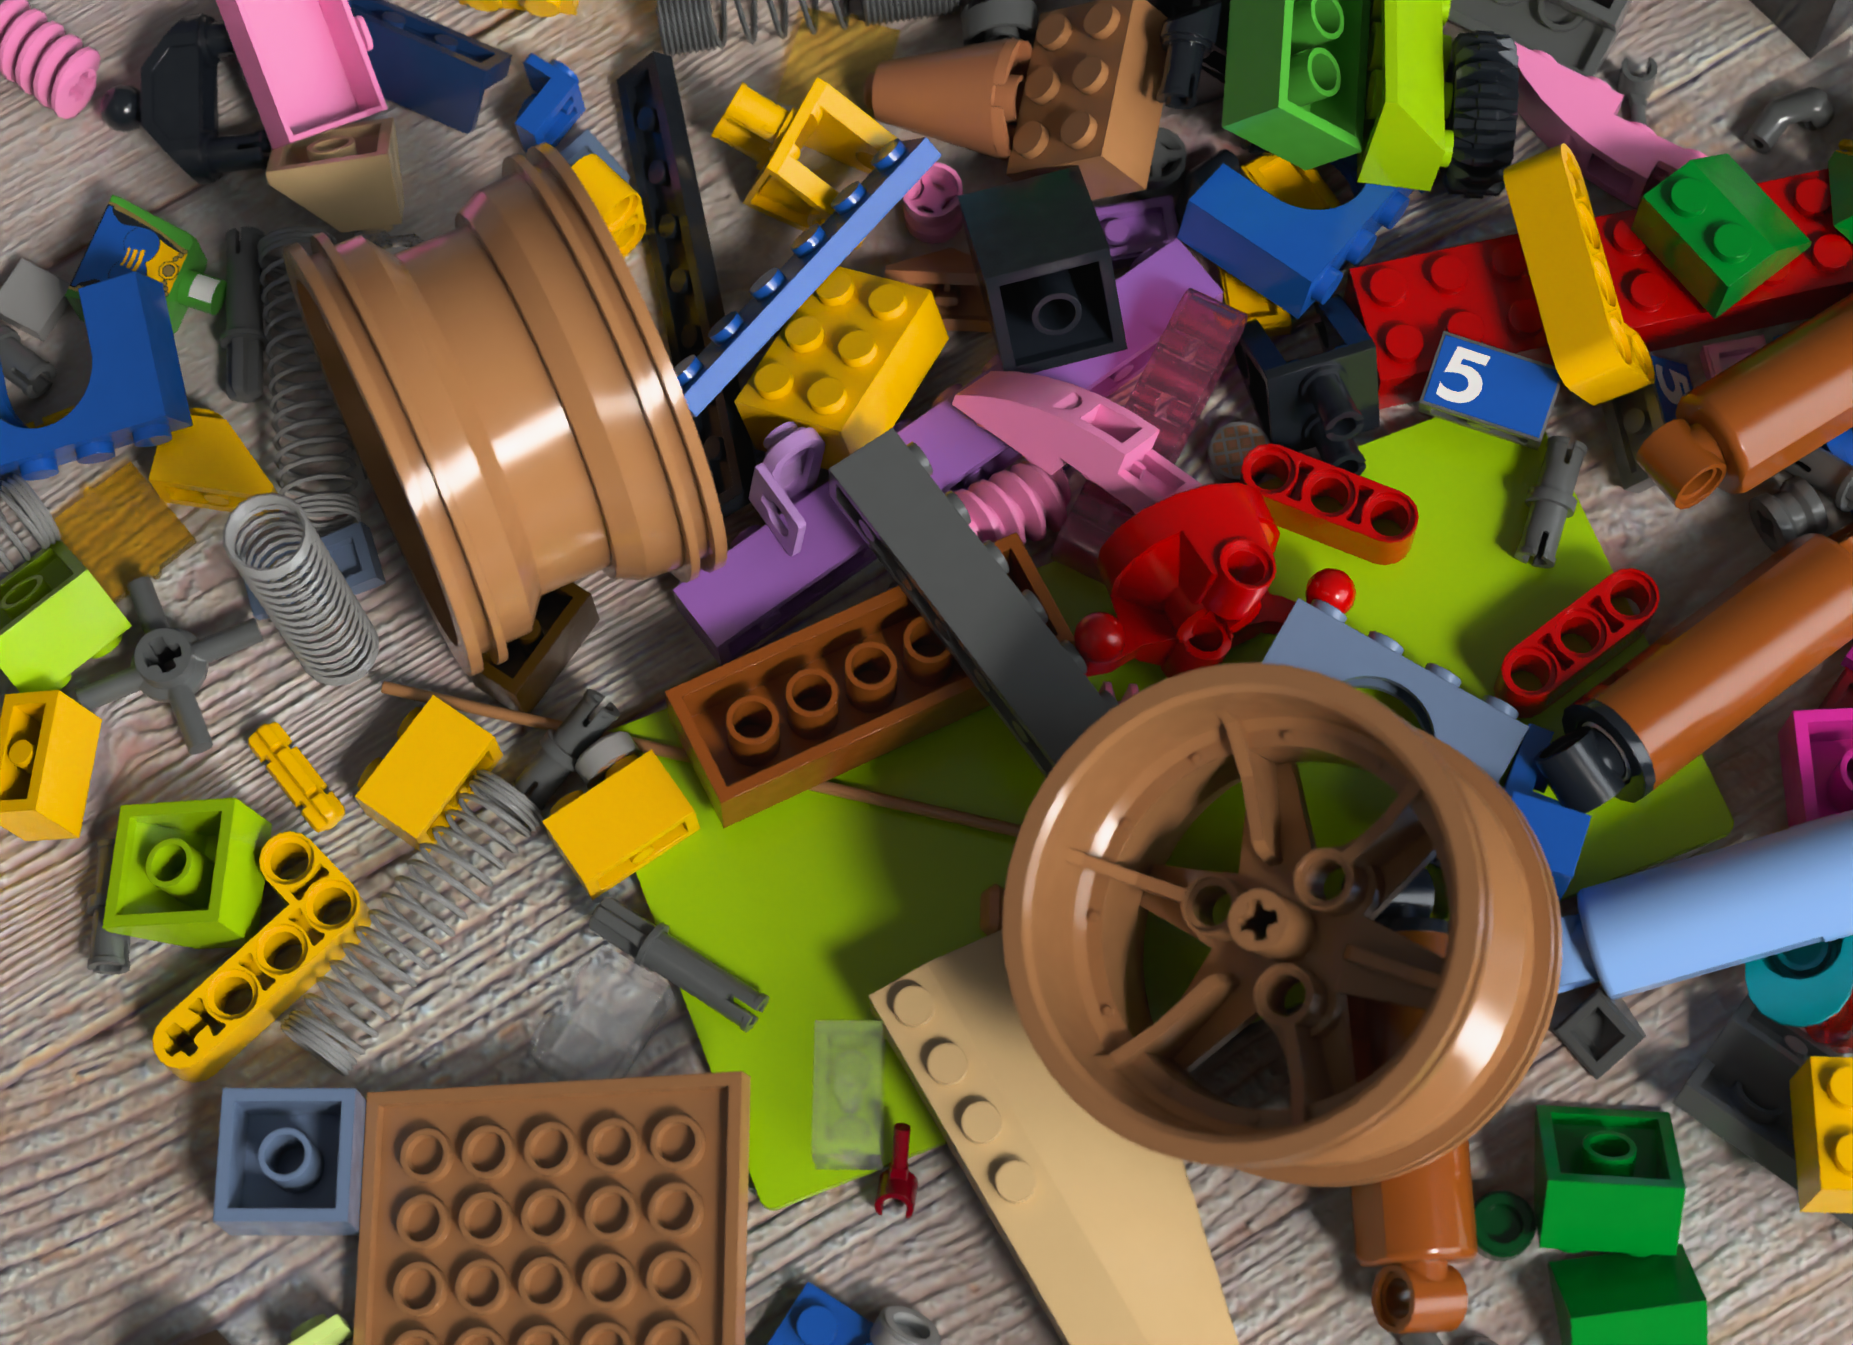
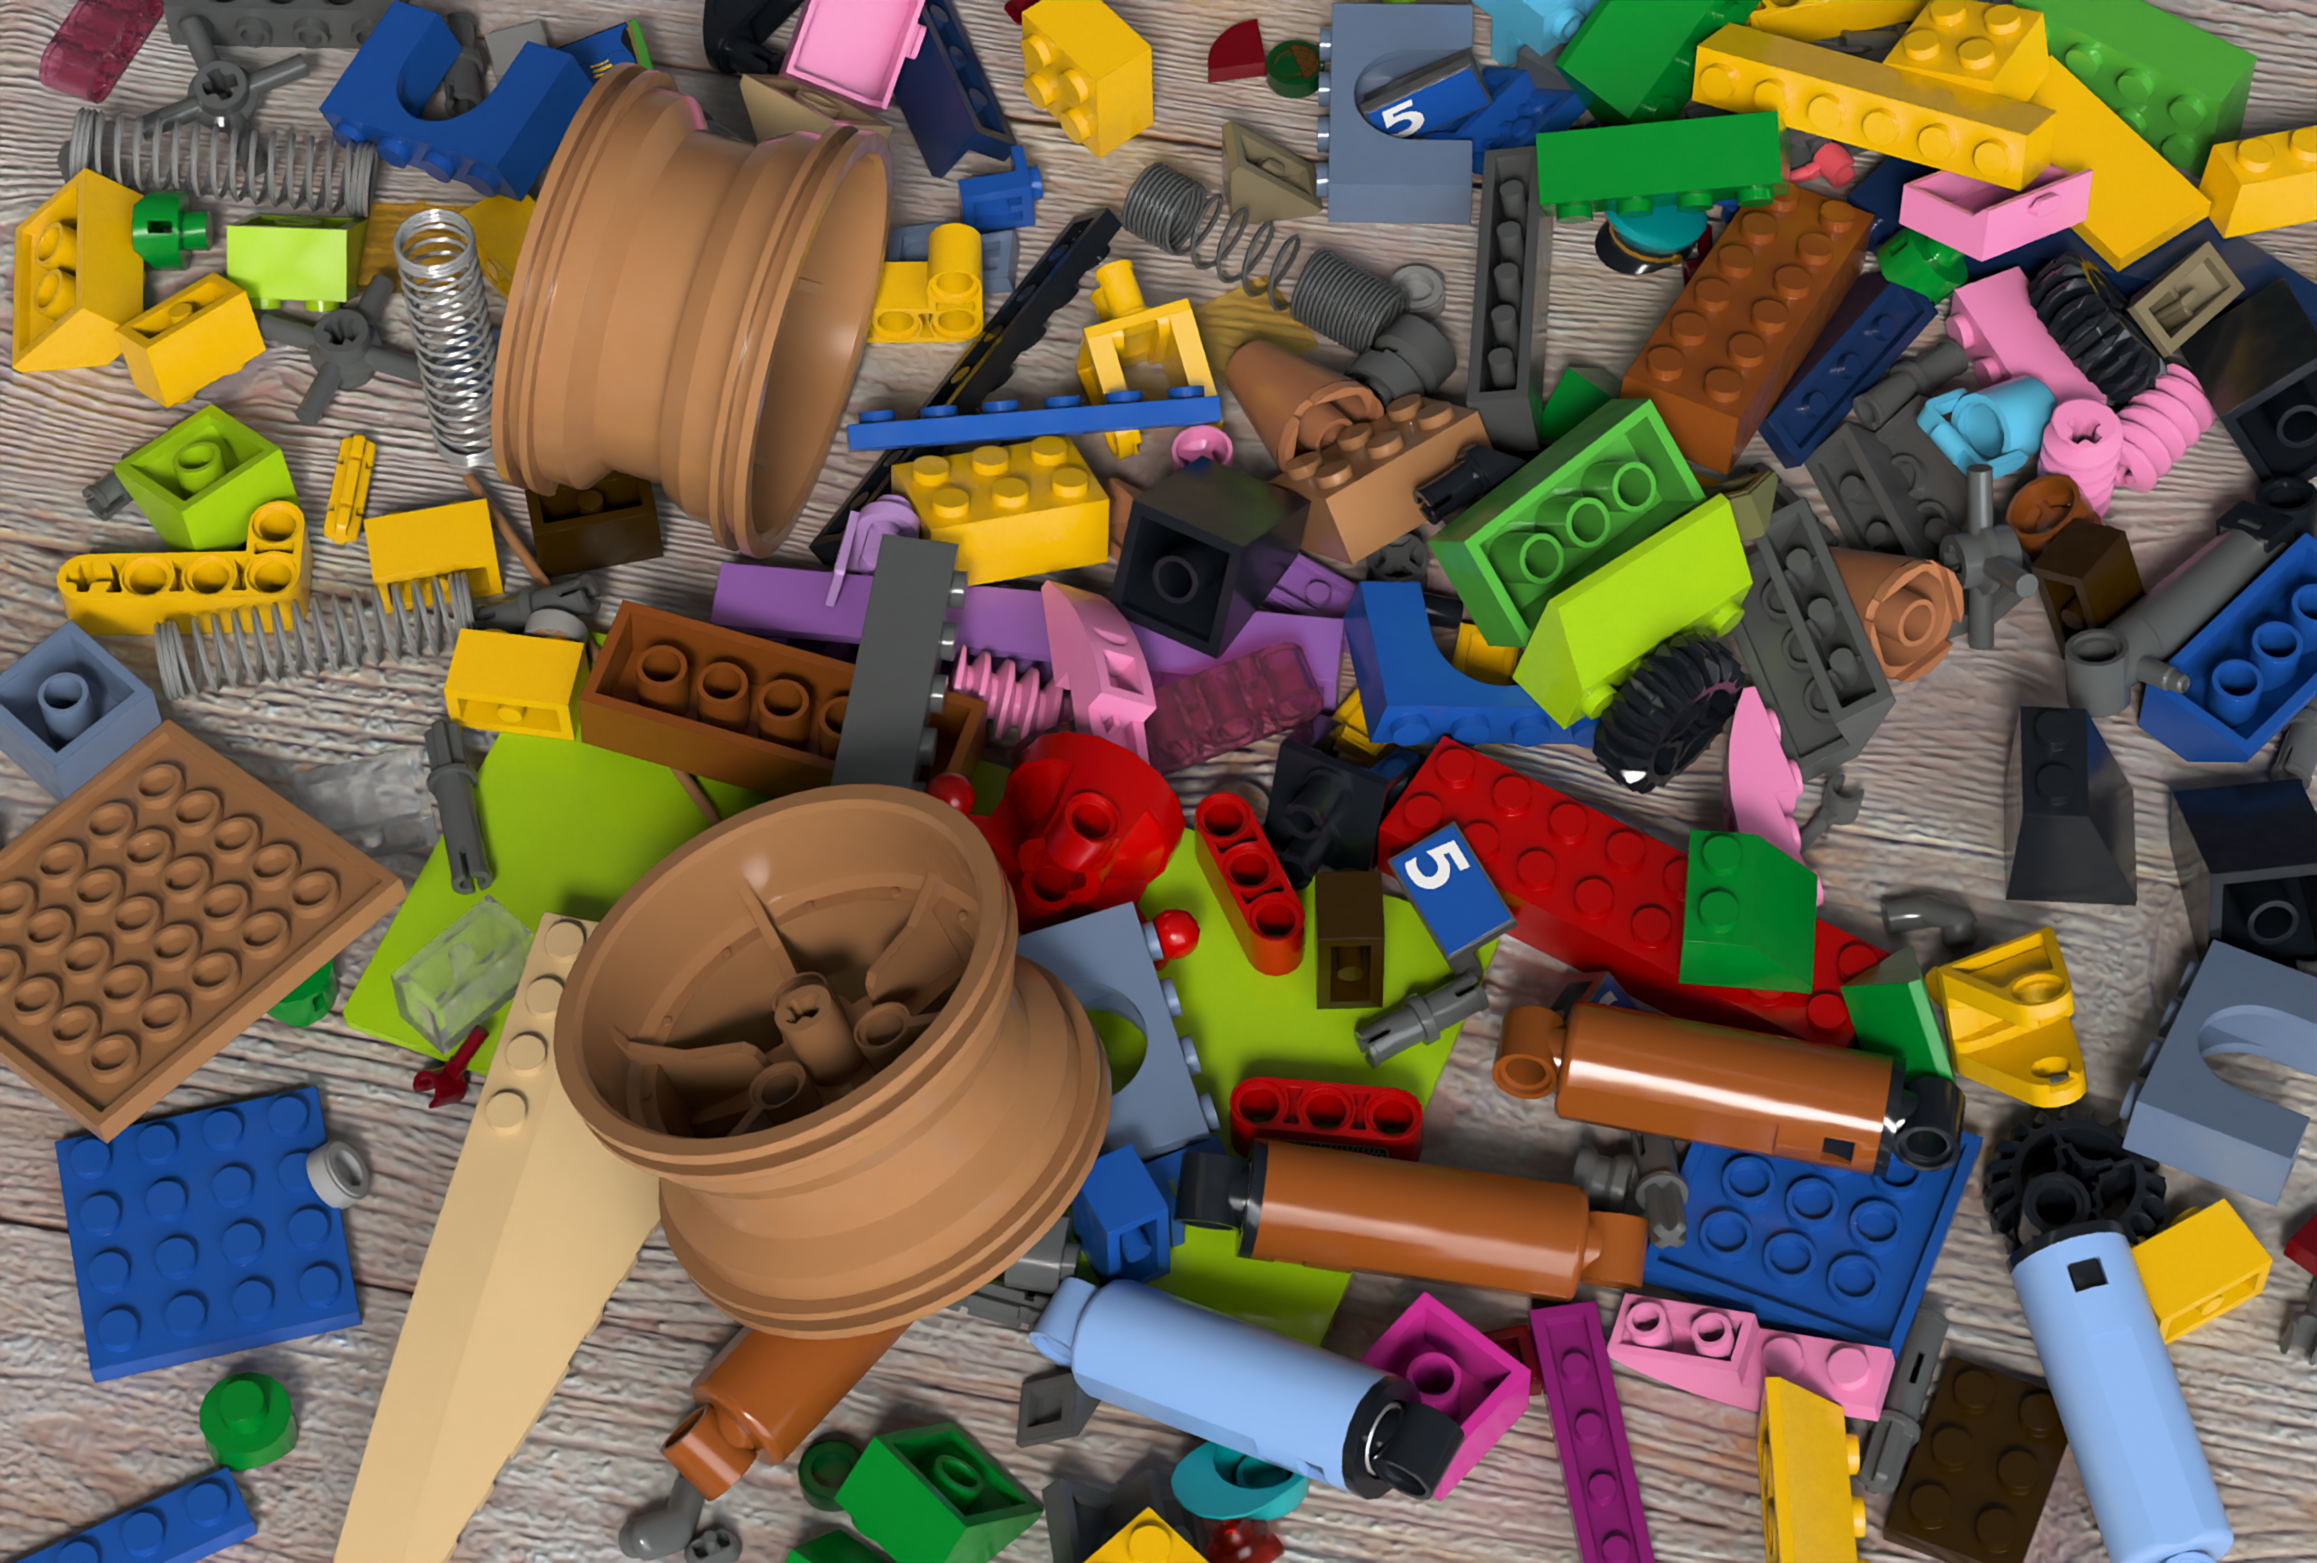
camera: 40 degrees right, 15 degrees down
(1459, 485) = (1349, 939): none -> dark brown brick
(1572, 281) = (1580, 860): yellow beam -> none

